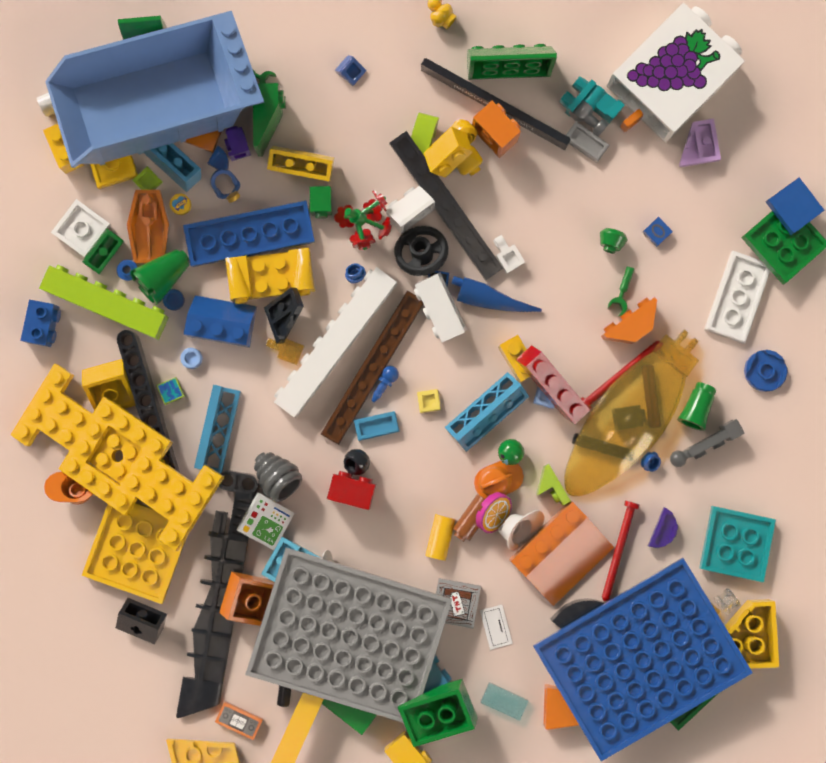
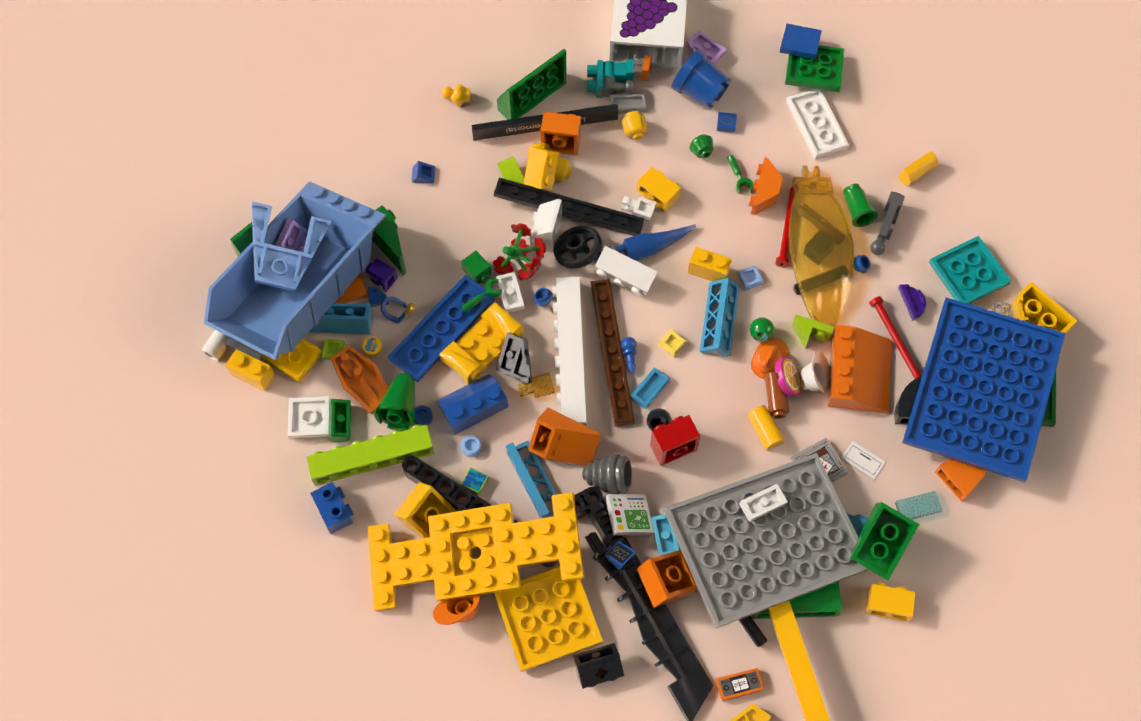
camera: 40 degrees left, 20 degrees down
(120, 269) = (368, 425): blue plate -> none
(143, 77) = (279, 265): none -> light blue wing
(176, 57) = (292, 236): none -> lavender wing
(226, 551) = (619, 555): none -> slope
(262, 416) = (563, 439): none -> orange slope
(299, 233) = (479, 298): none -> green piece
(300, 163) = (441, 252): yellow brick -> none
(331, 246) = (511, 293): none -> white plate
(366, 608) = (763, 502): none -> white plate
(538, 250) = (658, 188): none -> yellow brick
(553, 384) = (750, 258): brick -> none
(571, 170) = (634, 125): none -> yellow head
(666, 176) = (701, 80): none -> blue piece
(765, 370) = (879, 153): blue tile -> none
(784, 415) = (918, 168): none -> yellow brick

